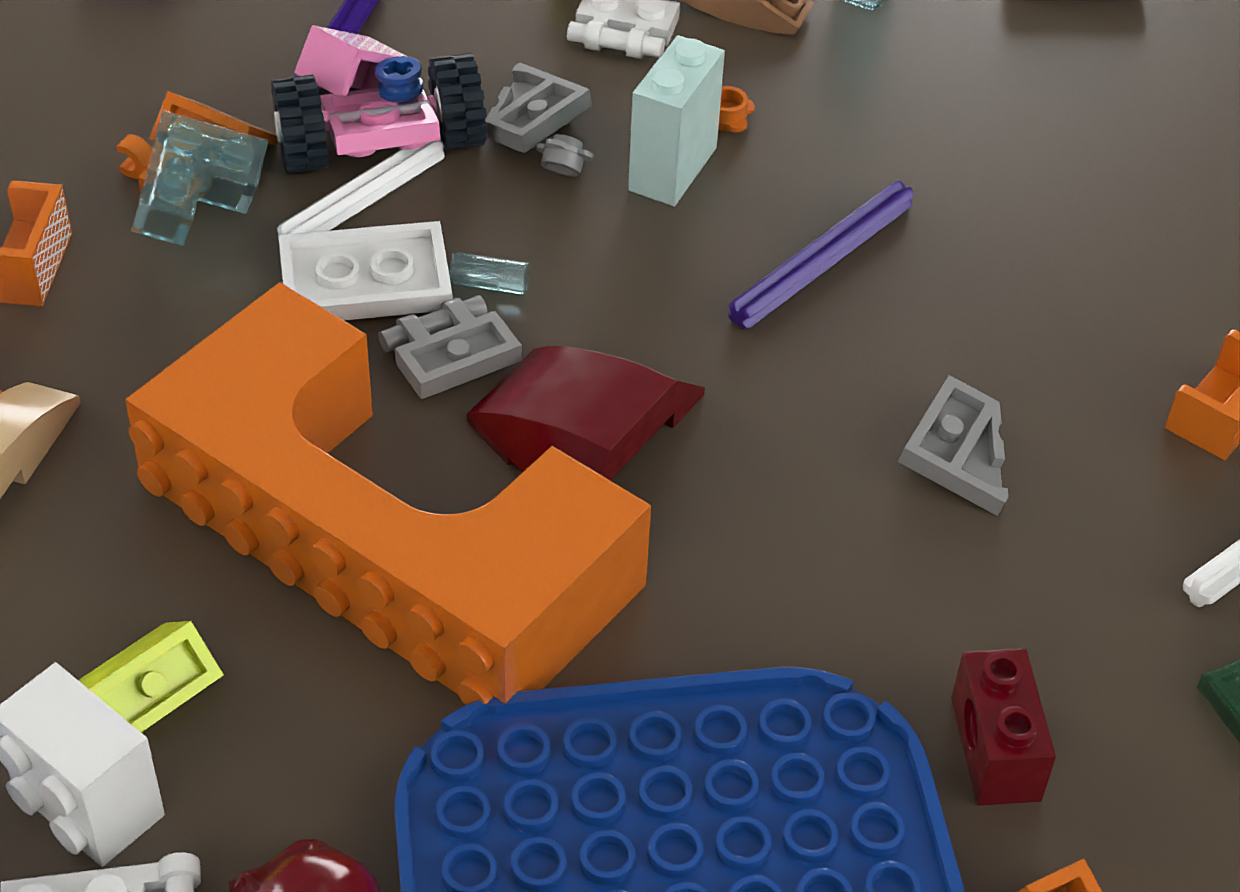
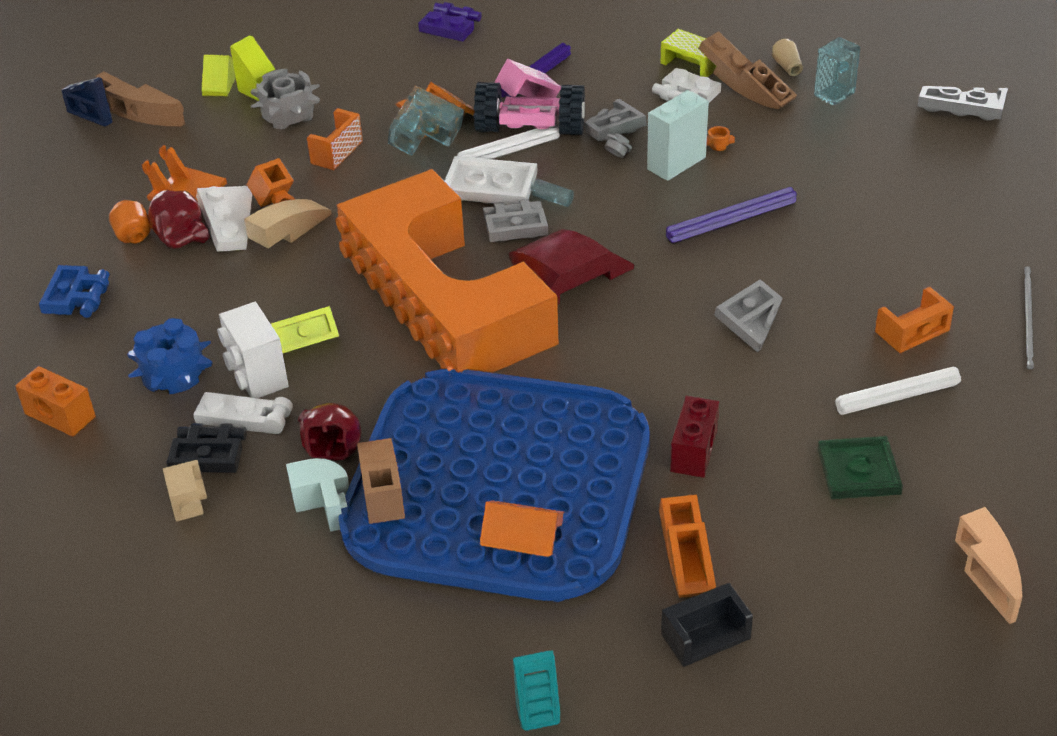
camera: 25 degrees right, 5 degrees down
(399, 78) = (546, 93): blue bush -> none

